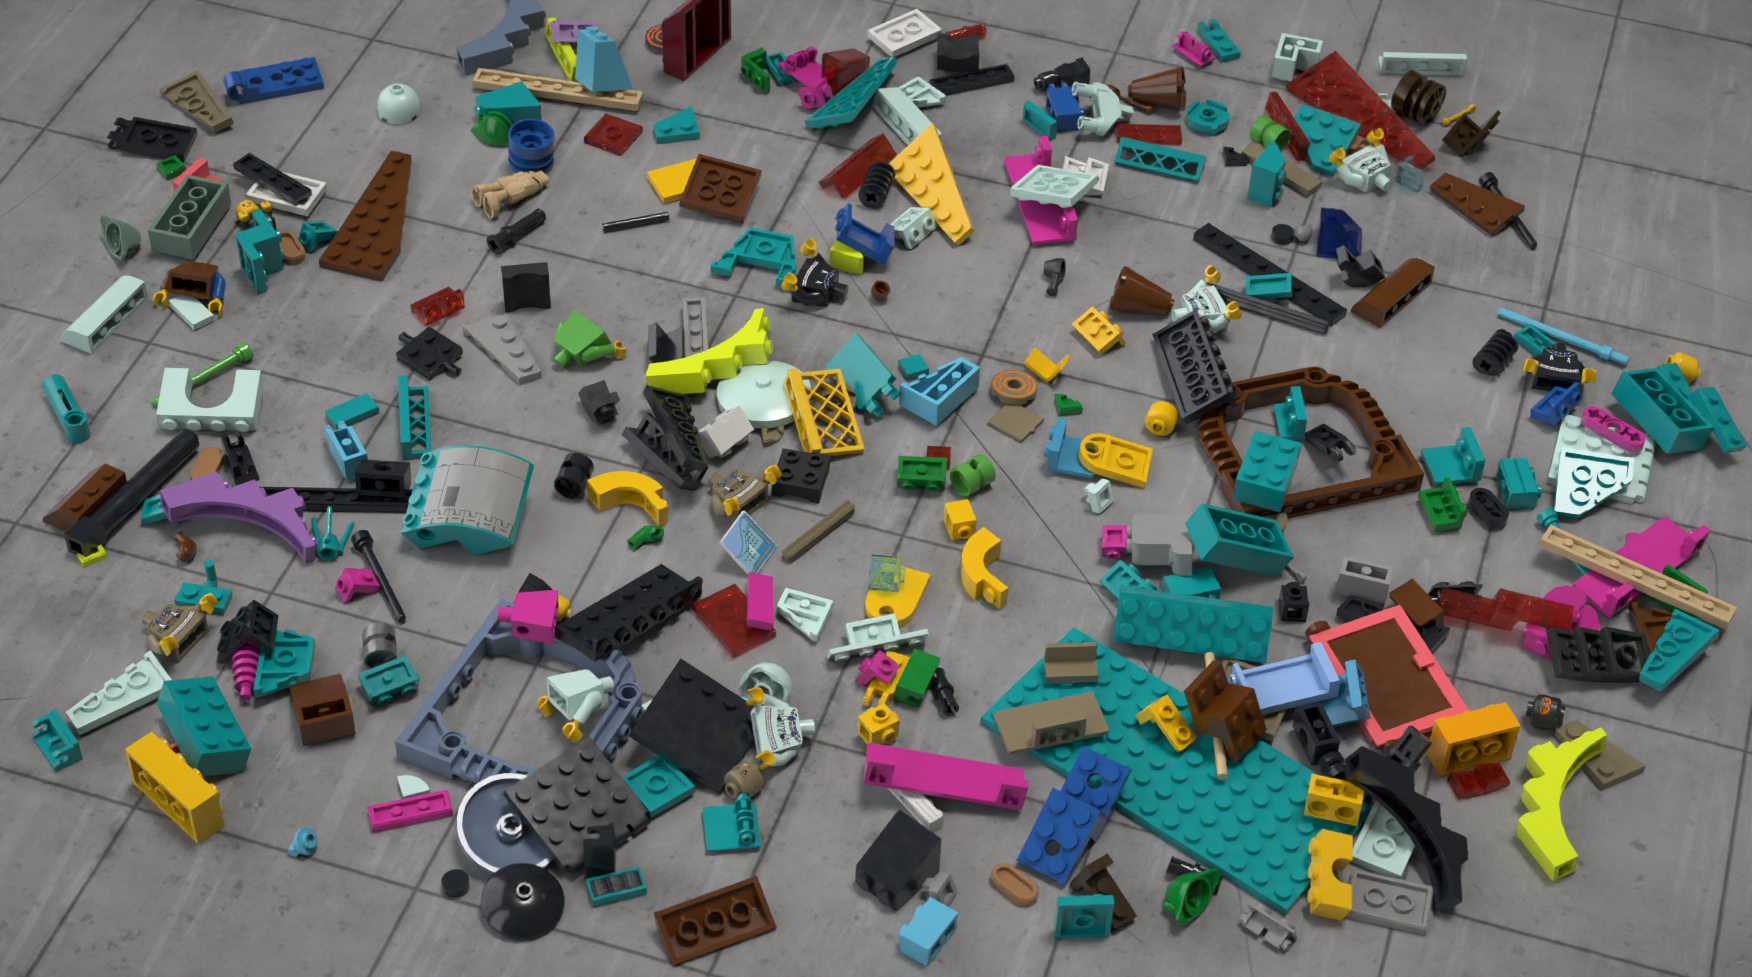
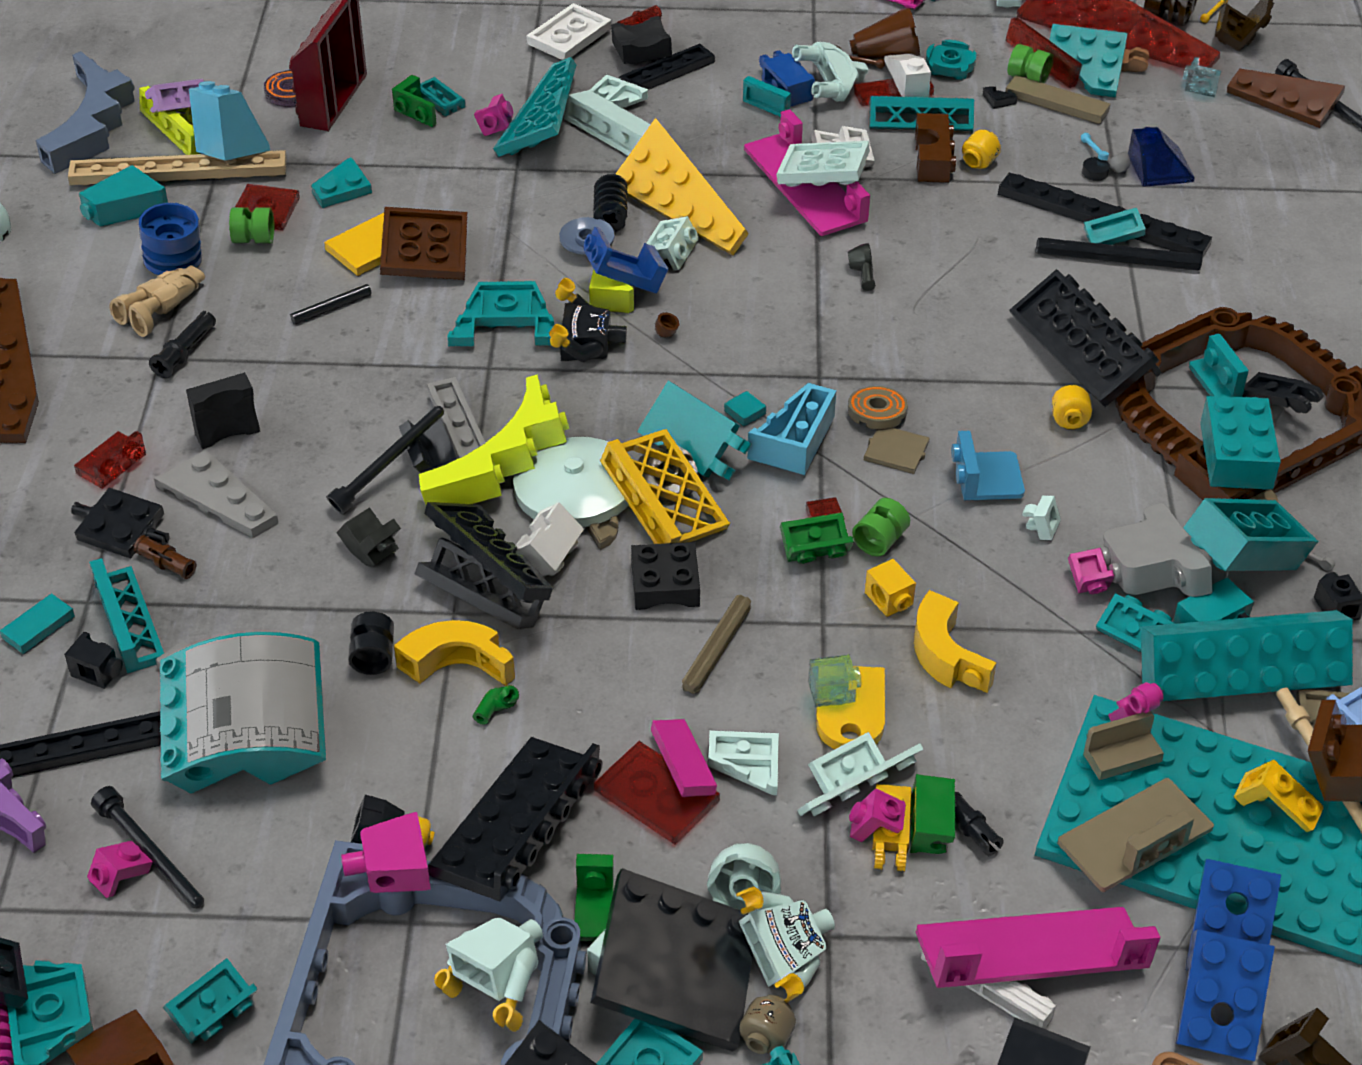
camera: 15 degrees left, 0 degrees up
(329, 545) = (61, 820): teal plant -> none
(345, 449) = (49, 679): medium azure hinge -> none
(378, 644) = (181, 953): flat silver wheel -> none
(380, 444) = (92, 661): none -> black brick
(383, 478) = (111, 707): black brick -> none
(446, 377) = (179, 564): none -> reddish brown pin
(492, 128) = (113, 227): green hat -> none
(583, 342) = (319, 464): bright green torso -> none
(591, 369) = (343, 497): none -> black piece
(597, 148) = (251, 225): none -> bright green wheel
(664, 661) = (593, 893): none -> green bracket
(741, 491) = (599, 615): dark tan torso -> none
(747, 543) = (637, 683): piece -> none
(803, 66) = (467, 88): dark pink hinge -> none
(843, 67) = (517, 79): clear red slope -> none
(852, 171) = (576, 188): clear red panel -> none
(859, 204) = (575, 232): none -> sand blue dish
(878, 725) = (914, 896): yellow brick -> none
(1043, 366) = (902, 375): yellow bracket -> none
(1065, 73) = (780, 38): black piece -> none
(1067, 406) = (948, 416): green tile -> none
(1092, 633) = (1142, 699): none -> dark pink plate
(1097, 330) = (946, 318): yellow bracket -> none
(1116, 458) = (1042, 468): yellow tile -> none
(1139, 295) = (974, 267): reddish brown cone -> none
(1158, 188) = (934, 147): none -> reddish brown arch
(1162, 125) = (909, 74): none -> white slope
(1193, 199) = (981, 149): none -> yellow head
(1208, 303) = (1052, 254): light aqua torso -> none
(1267, 176) = (1056, 106): teal slope -> none
(1291, 224) = (1102, 155): none -> medium azure hinge
(1359, 271) = (1206, 190): black brick -> none
(1365, 168) = (1152, 78): light aqua torso -> none
(1395, 292) = (1252, 206): reddish brown brick -> none

